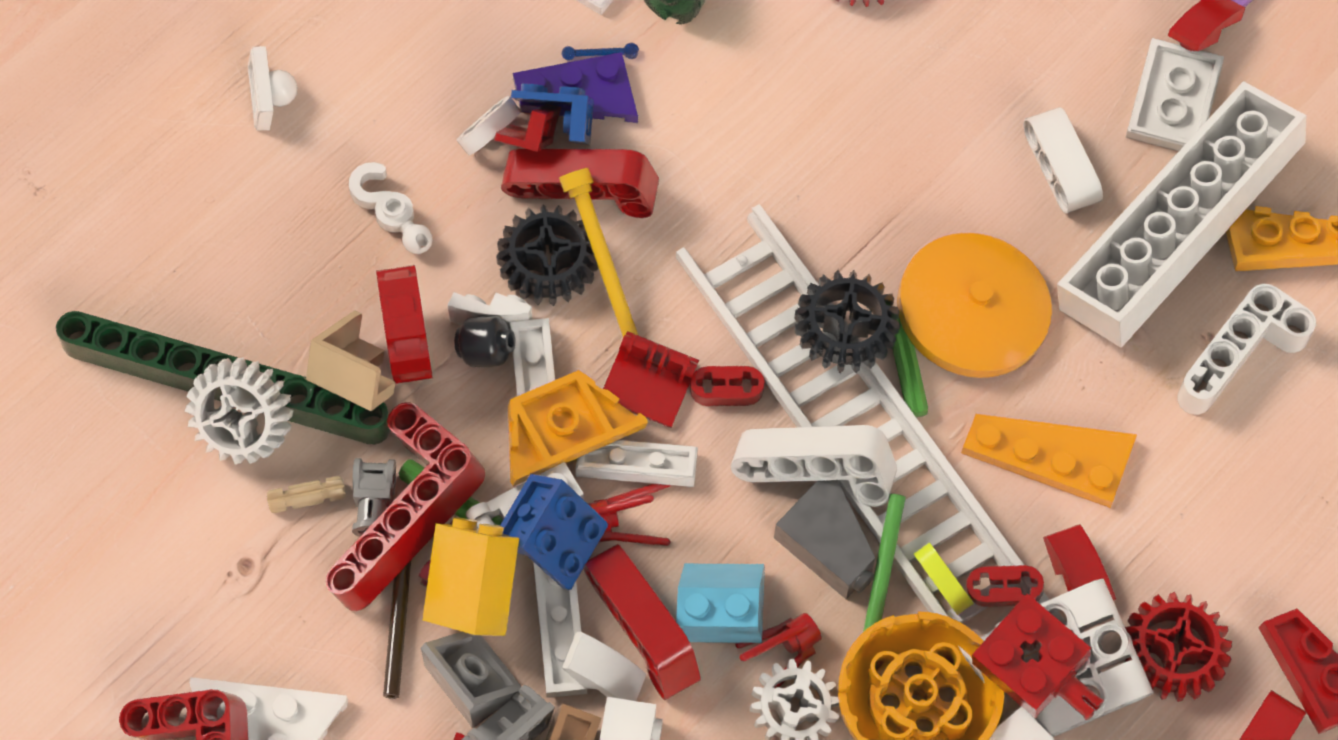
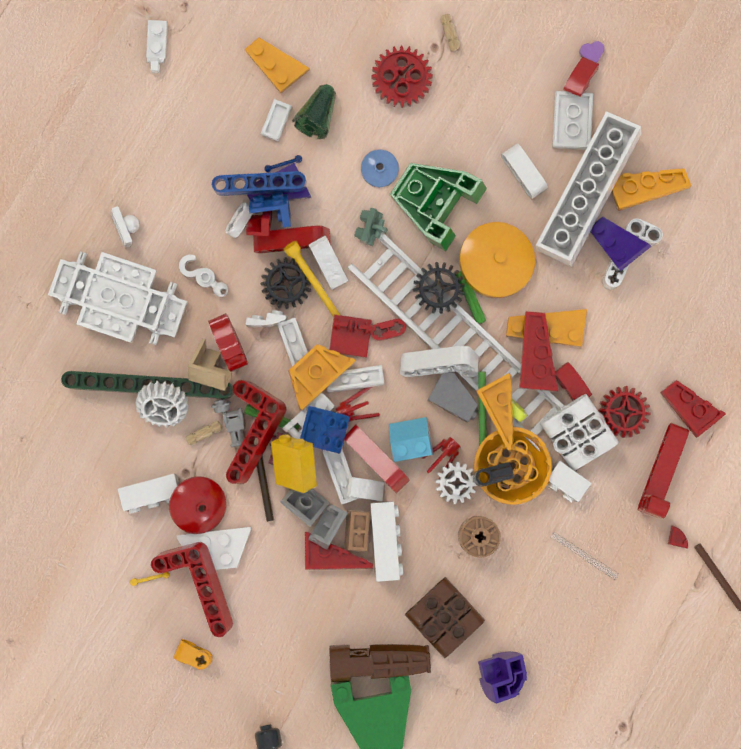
camera: 15 degrees left, 20 degrees up
(162, 580) = (147, 493): none -> white brick
(215, 208) = (117, 297): none -> white piece
(224, 630) = (186, 501): none -> red dish
(354, 447) = (221, 406): none -> light grey plate
(484, 341) = (267, 337): black head -> none
(531, 51) = (250, 179): none -> blue beam
(640, 228) = (328, 262): none -> white tile
(743, 191) = (373, 226): none -> sand green hips
(781, 113) = (377, 177): none -> medium blue dish
(872, 163) = (431, 194): none -> green wedge
(880, 691) = (495, 474): none -> black piece
(919, 556) = (498, 403): none -> light orange wing
(1004, 576) = (542, 407): red beam -> none
(1014, 502) = (536, 361): none -> red wing
(1034, 682) = (564, 454): red brick -> none
(1225, 318) = (618, 243): none -> dark purple wing

